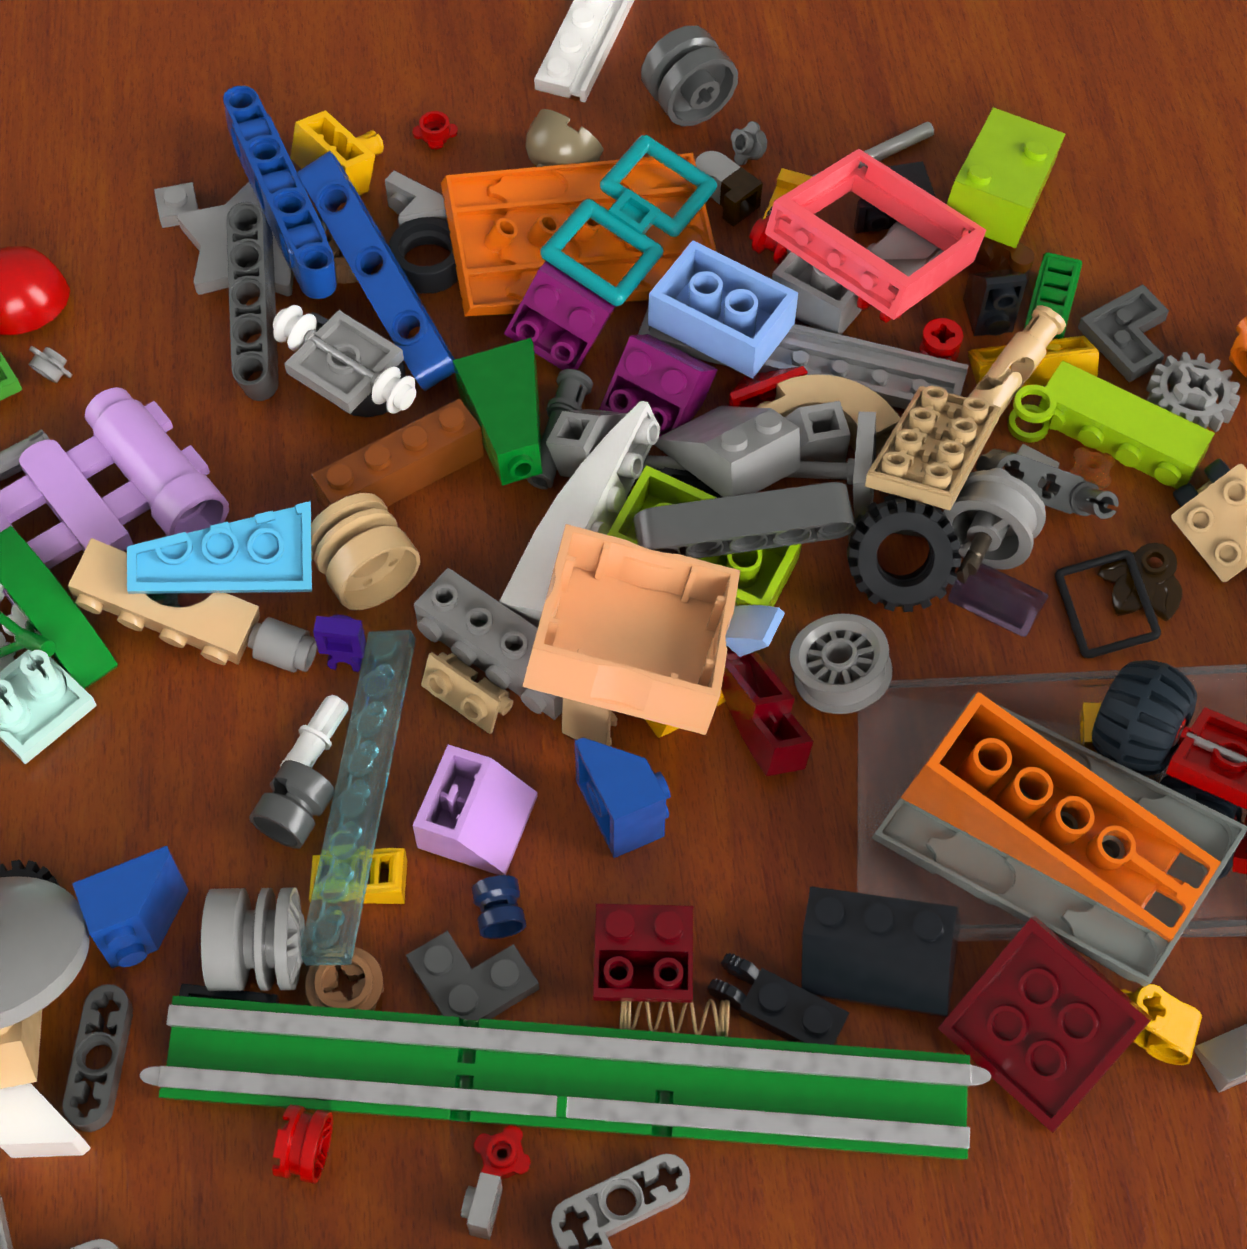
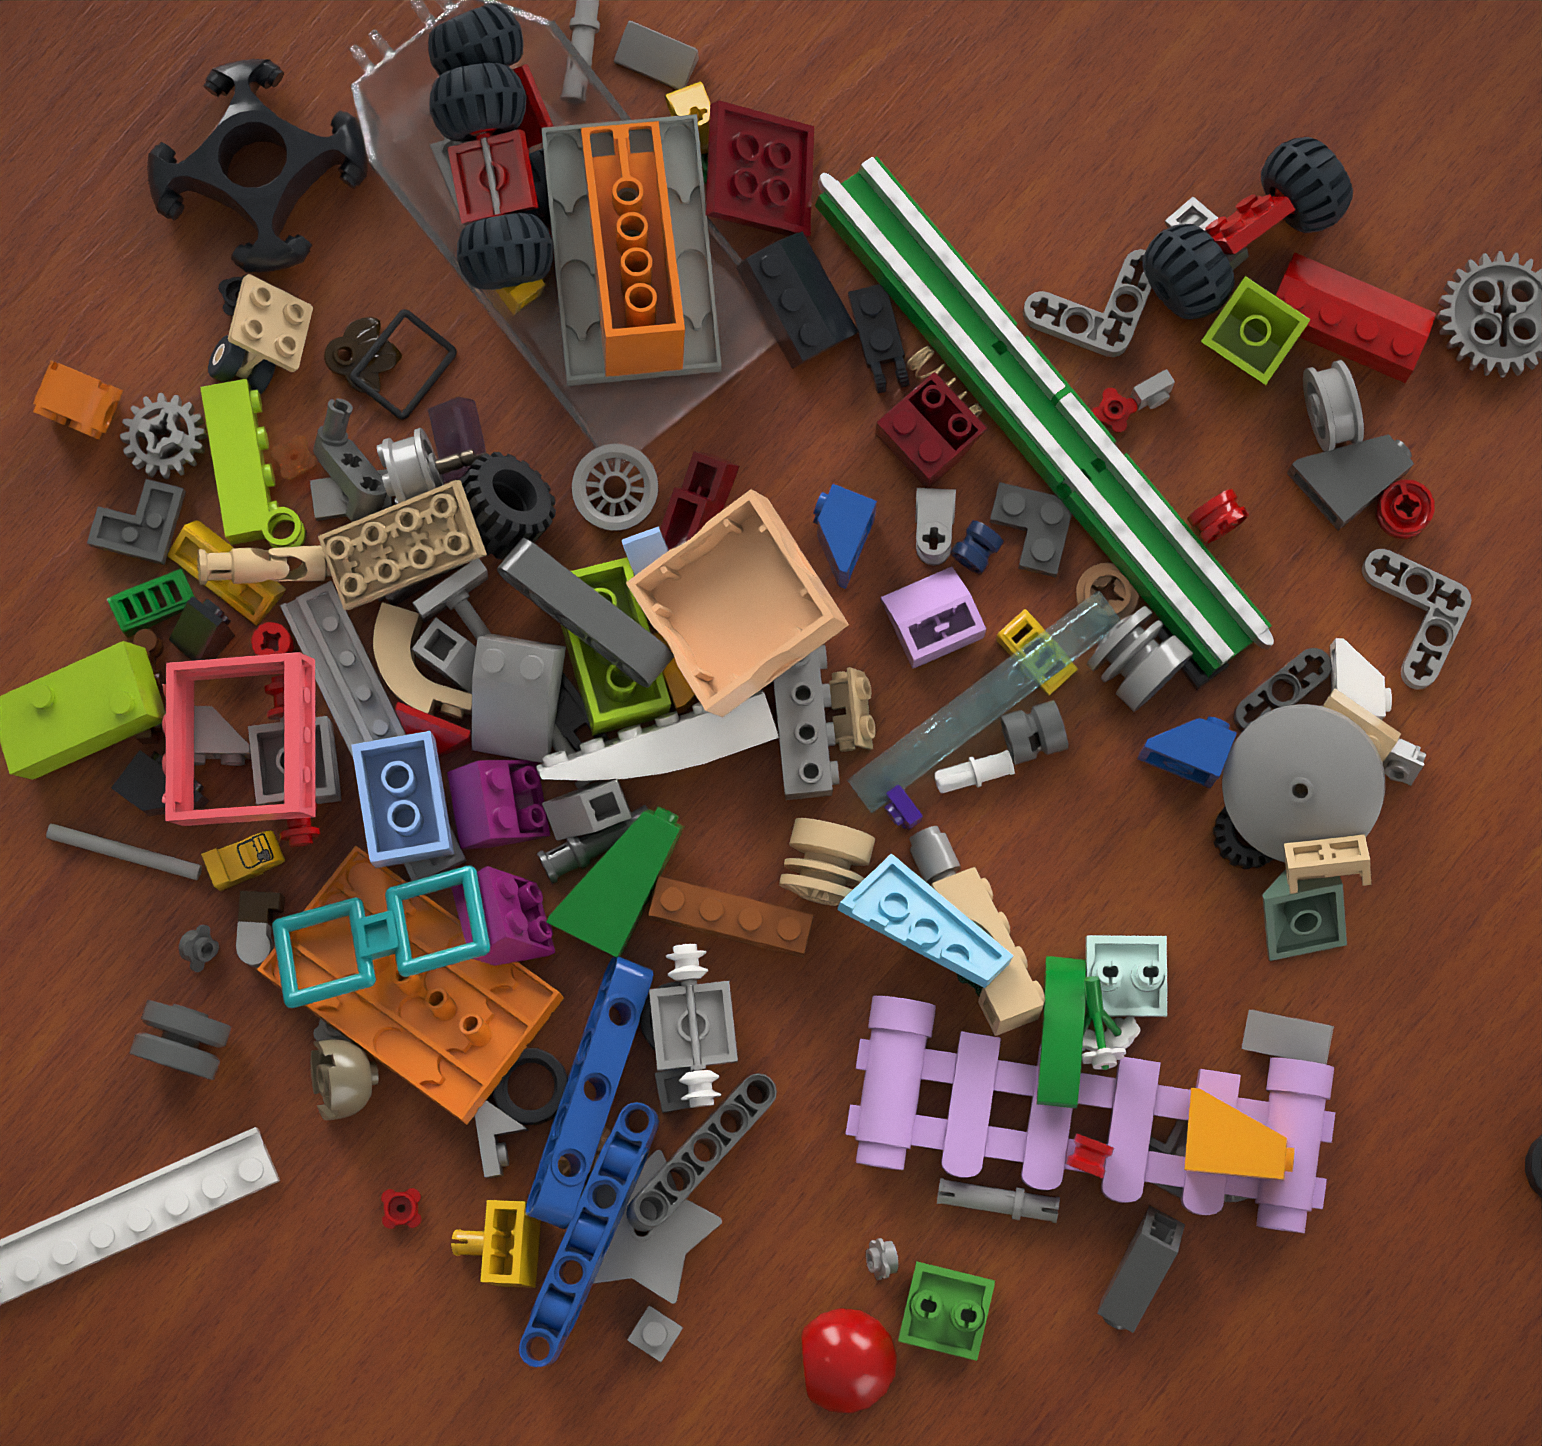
camera: 130 degrees left, 20 degrees up
(562, 895) = (934, 520): none -> light grey piece

